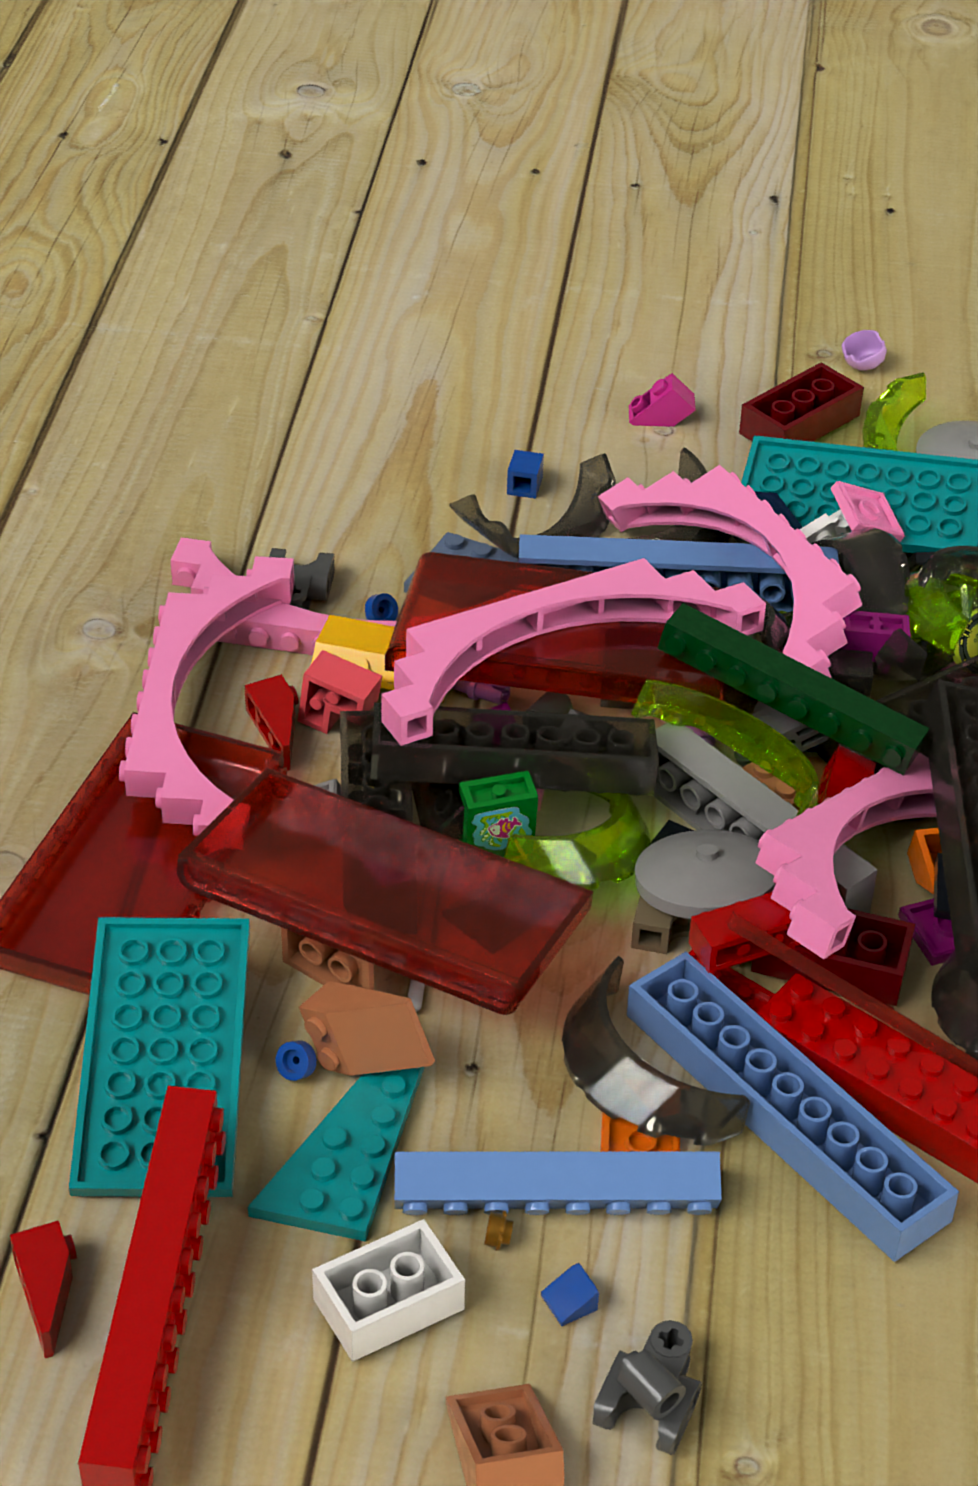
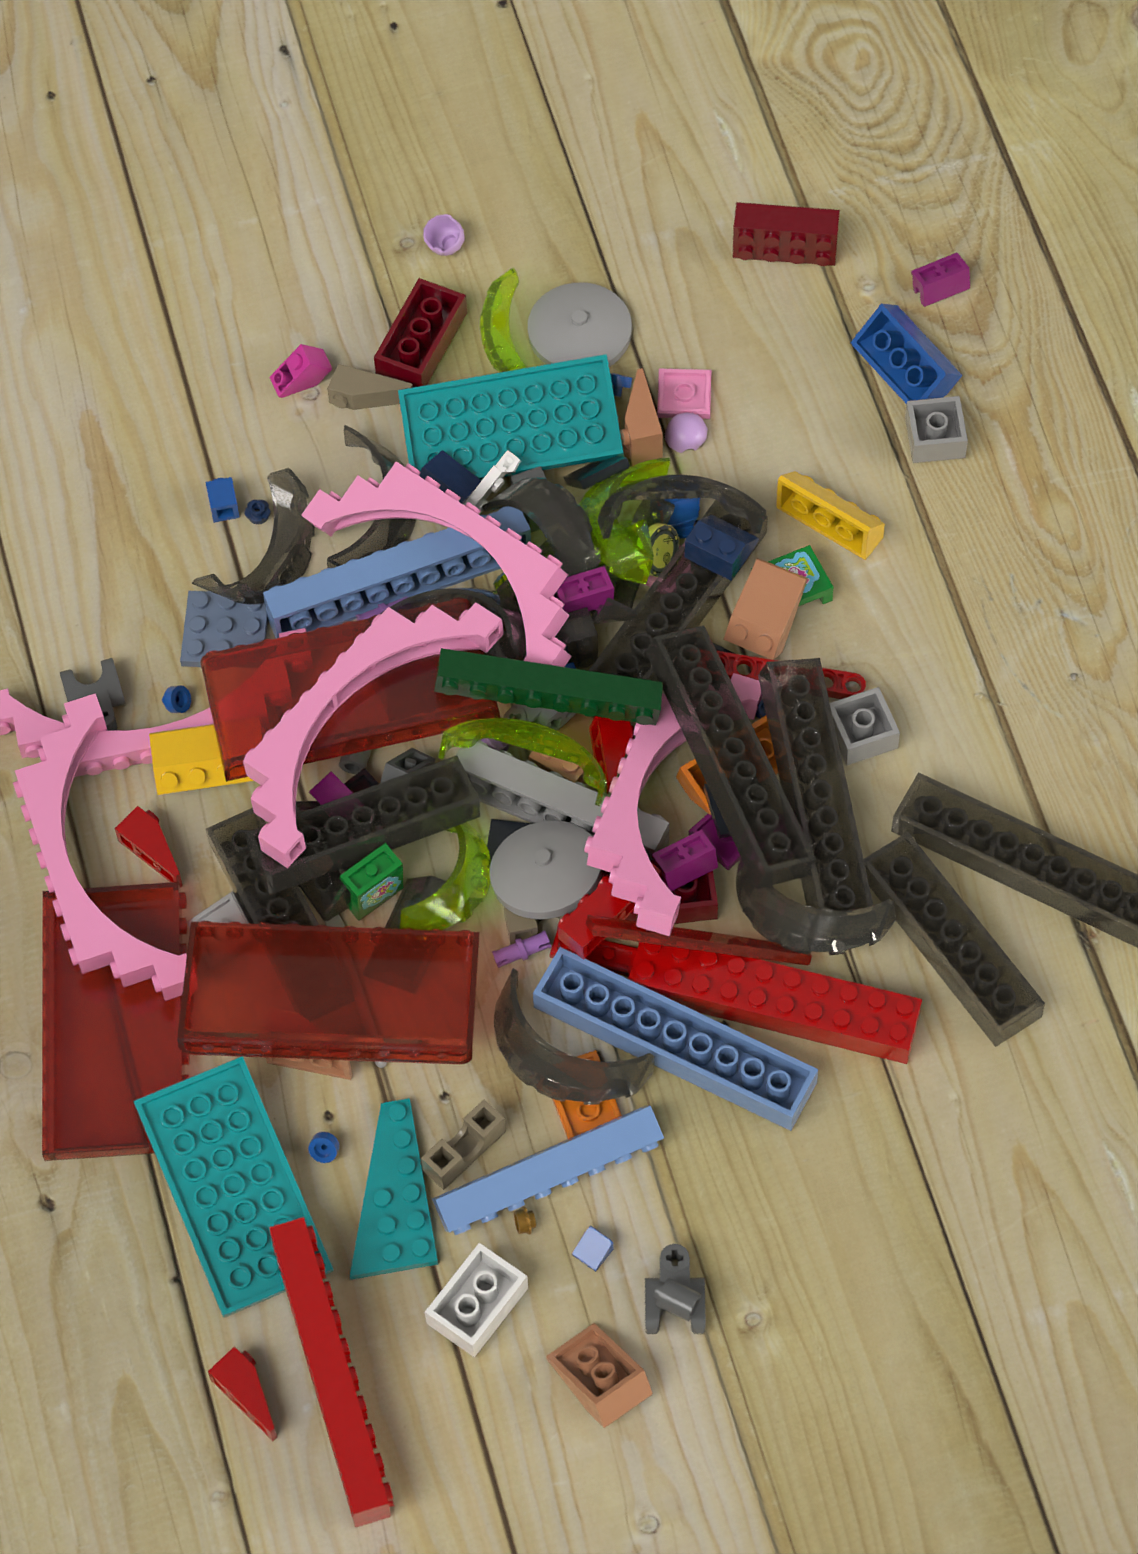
camera: 20 degrees left, 20 degrees up
(333, 687) = (192, 806): coral brick -> none
(364, 1030) = (366, 1111): nougat slope -> none
(492, 1111) = (449, 1159): none -> dark tan arch
(556, 496) = (260, 516): none -> dark blue plate
(641, 951) = (521, 949): none -> medium lavender pin
(716, 434) = (362, 389): none -> dark tan slope
(866, 509) = (525, 450): bright pink tile -> none
(884, 913) = (686, 860): none -> magenta hinge

